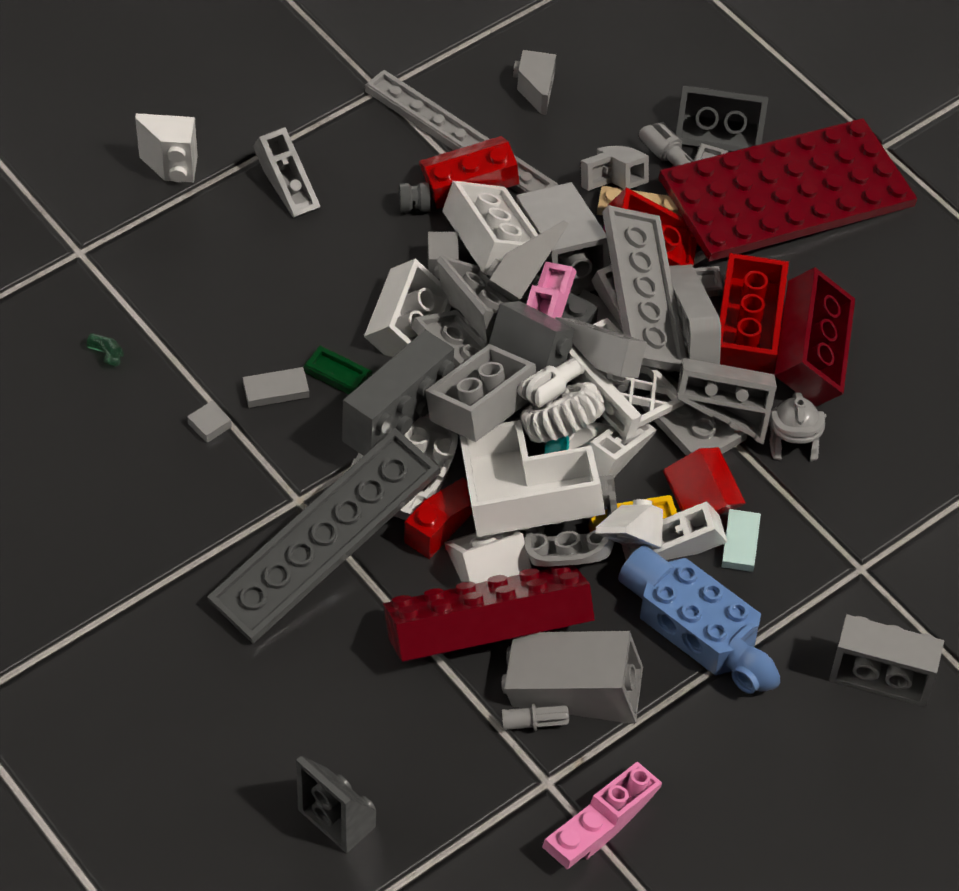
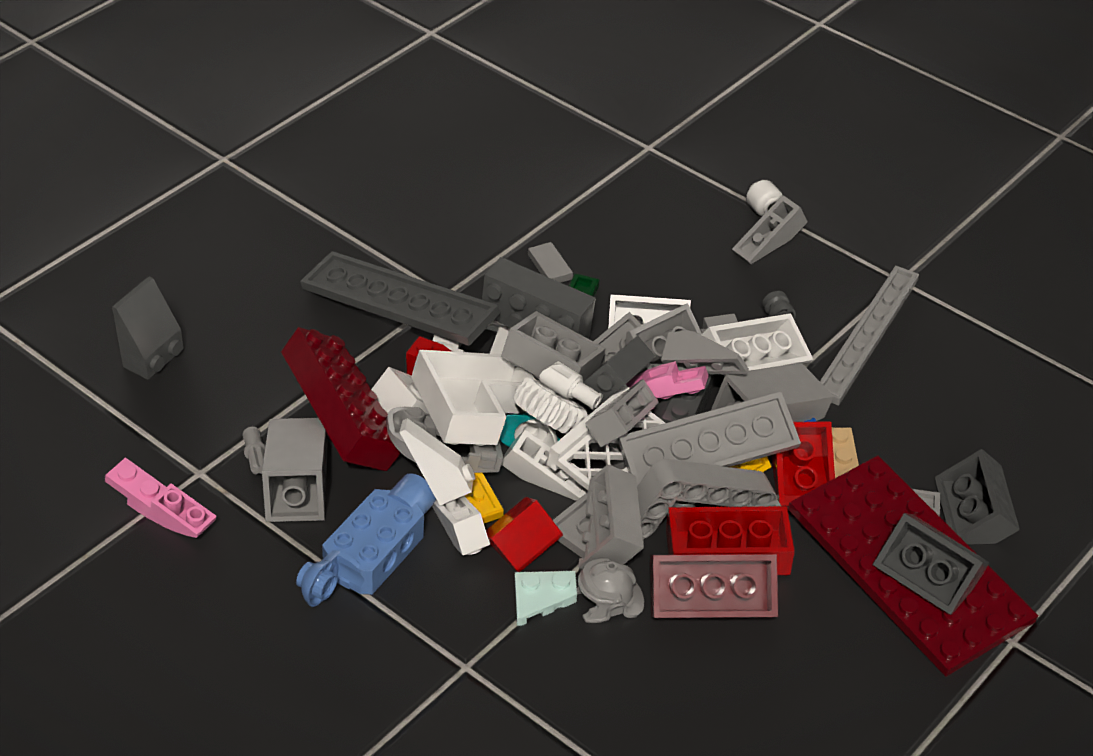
camera: 80 degrees right, 10 degrees down
(105, 344) = (556, 173): clear green arm -> none
(168, 145) = (759, 158): white slope -> none
(209, 421) = (505, 234): light grey tile -> none
(225, 163) = (762, 196): none -> white head
(480, 163) = (824, 335): red slope -> none
(535, 78) = (957, 368): light grey slope -> none
(615, 165) = (870, 426): light grey brick -> none
(664, 143) = (918, 467): light grey arm -> none
(742, 540) = (472, 570): light aqua tile -> none
(780, 487) = (543, 593): none -> light aqua wing
(815, 165) = (930, 563): none -> dark grey slope
(886, 660) = (343, 674): light grey brick -> none

